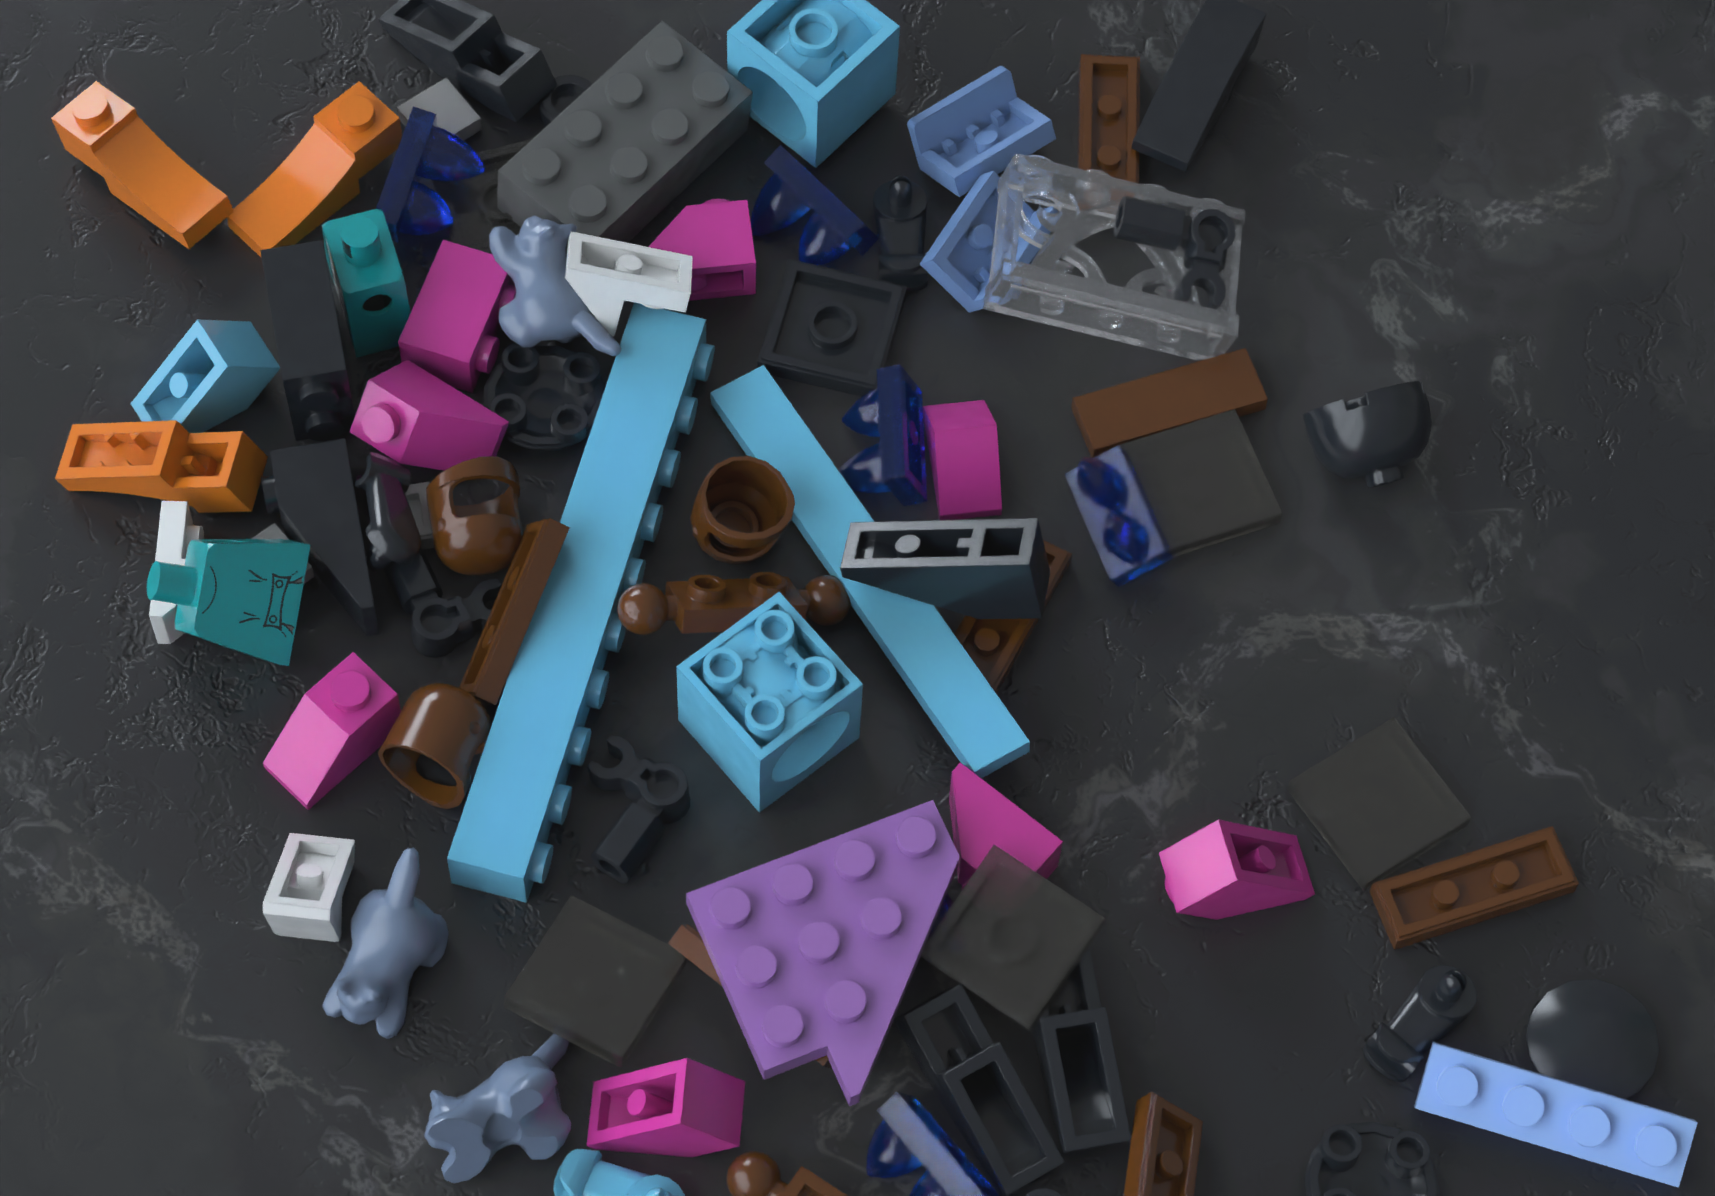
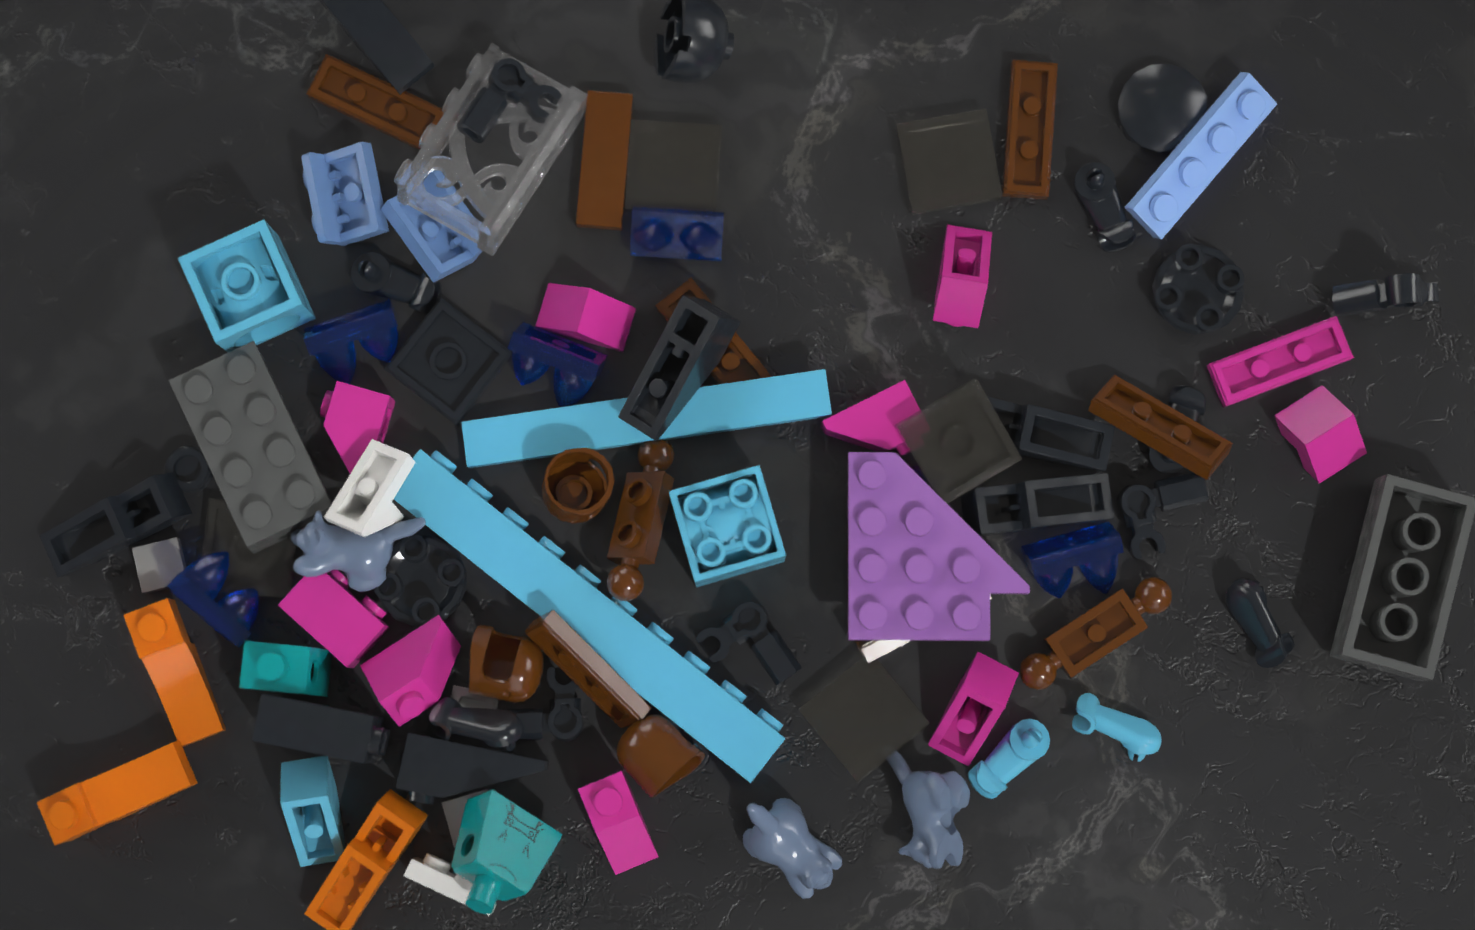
camera: 65 degrees left, 20 degrees up
(309, 887) = (723, 877): white slope -> none

